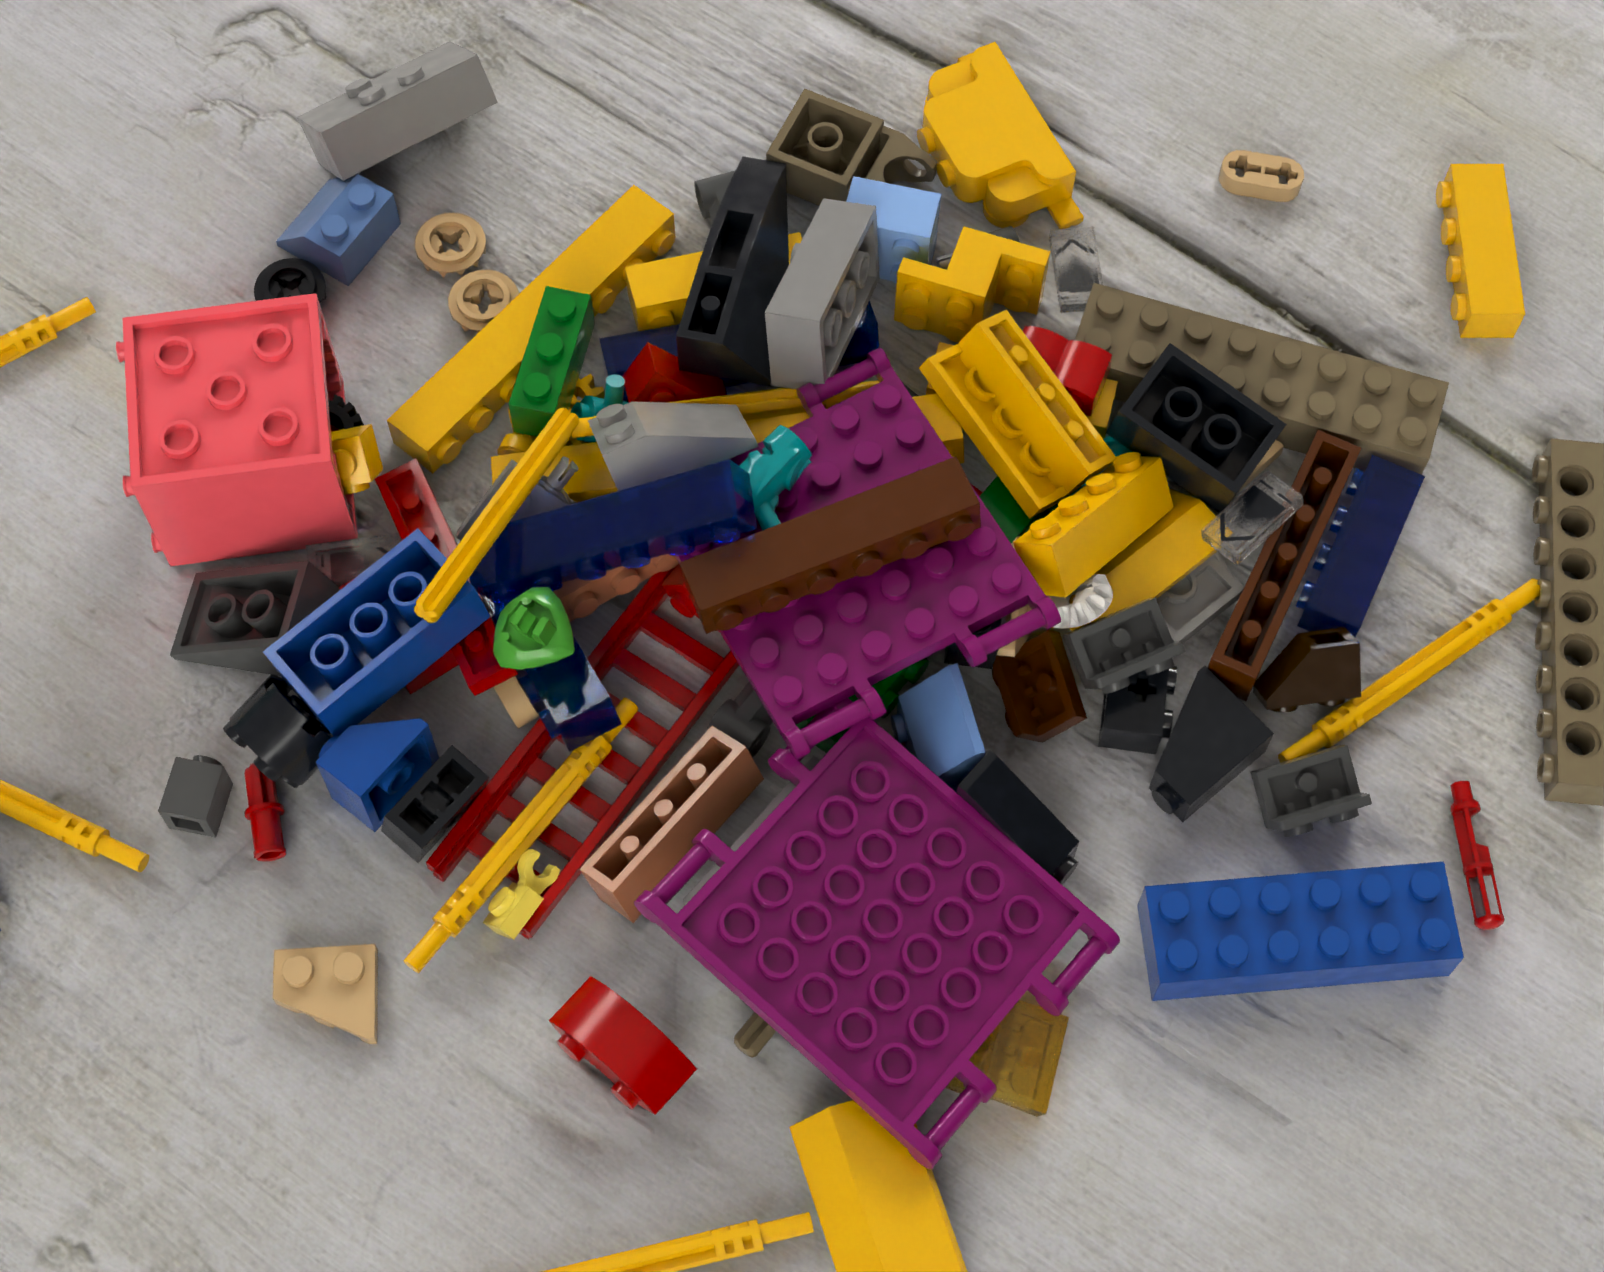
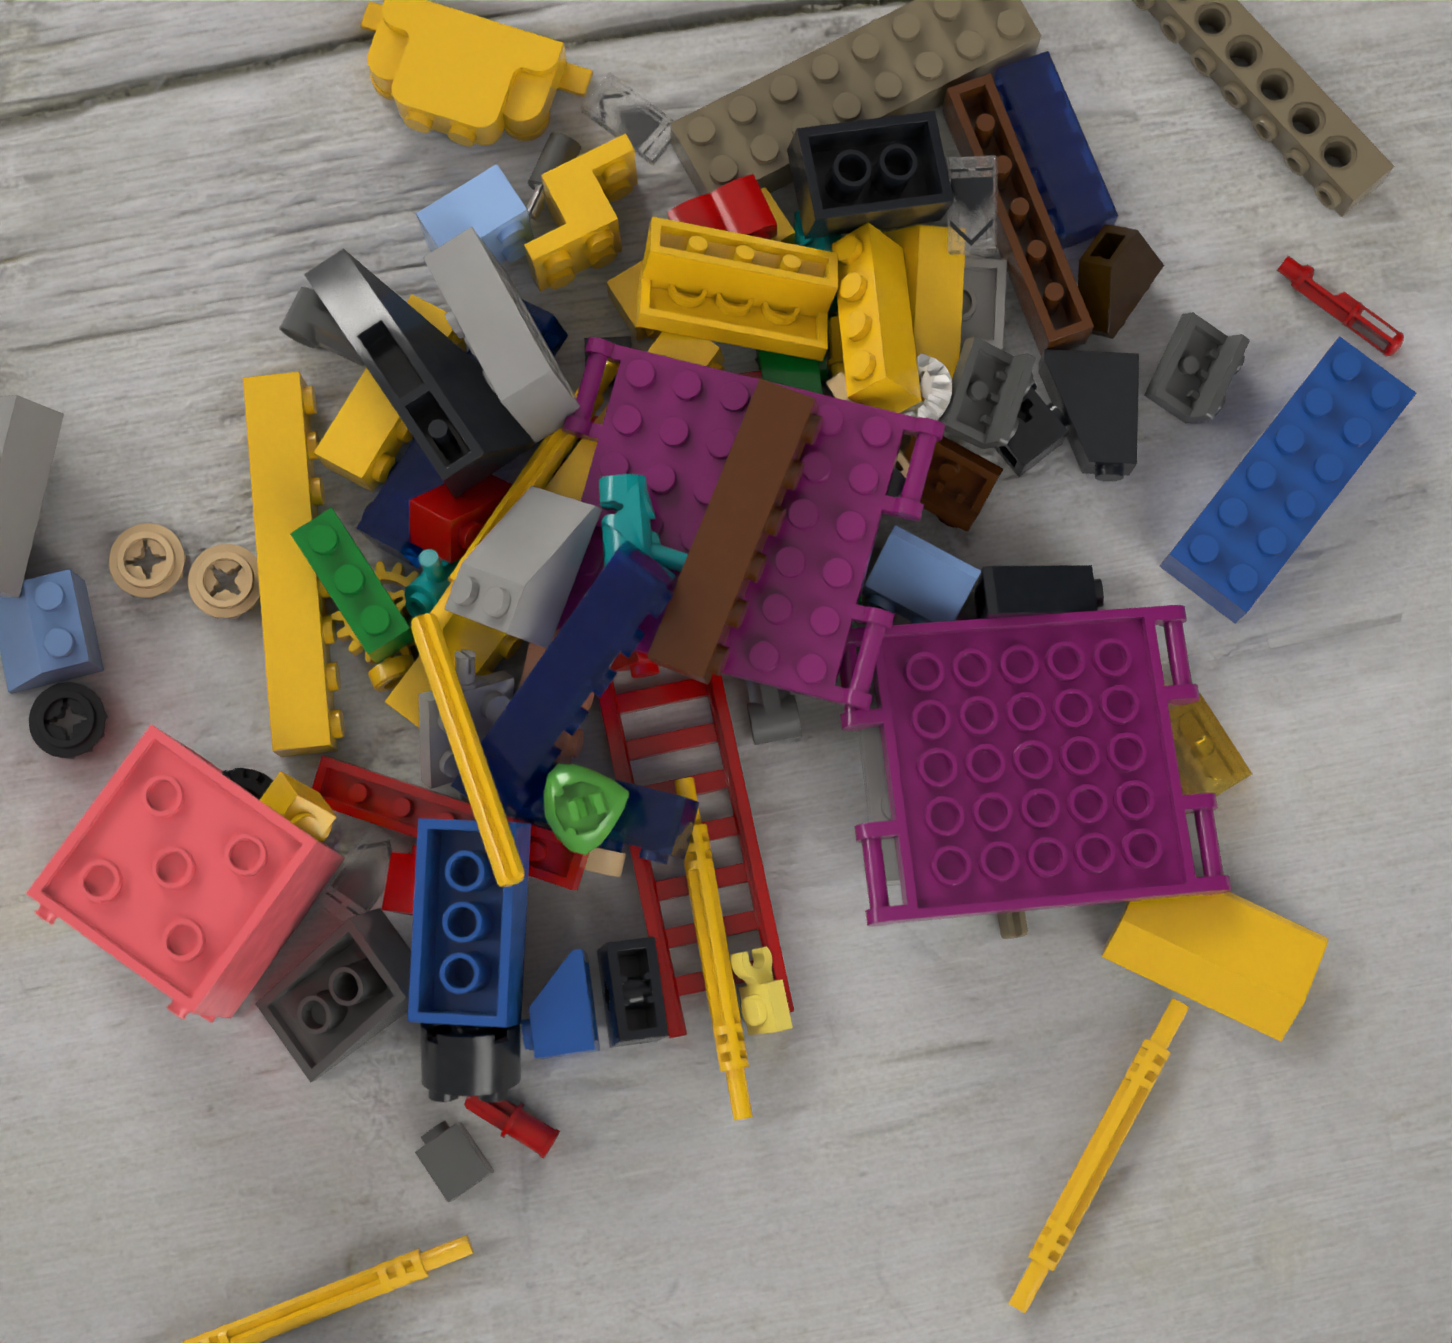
camera: 45 degrees left, 15 degrees up
(331, 986) = (697, 1187): tan wing -> none
(622, 1046) = (941, 1021): red brick -> none
(693, 796) = (808, 834): nougat brick -> none
(833, 142) = (385, 183): dark tan brick -> none
(1413, 672) = (1173, 208): yellow axle -> none

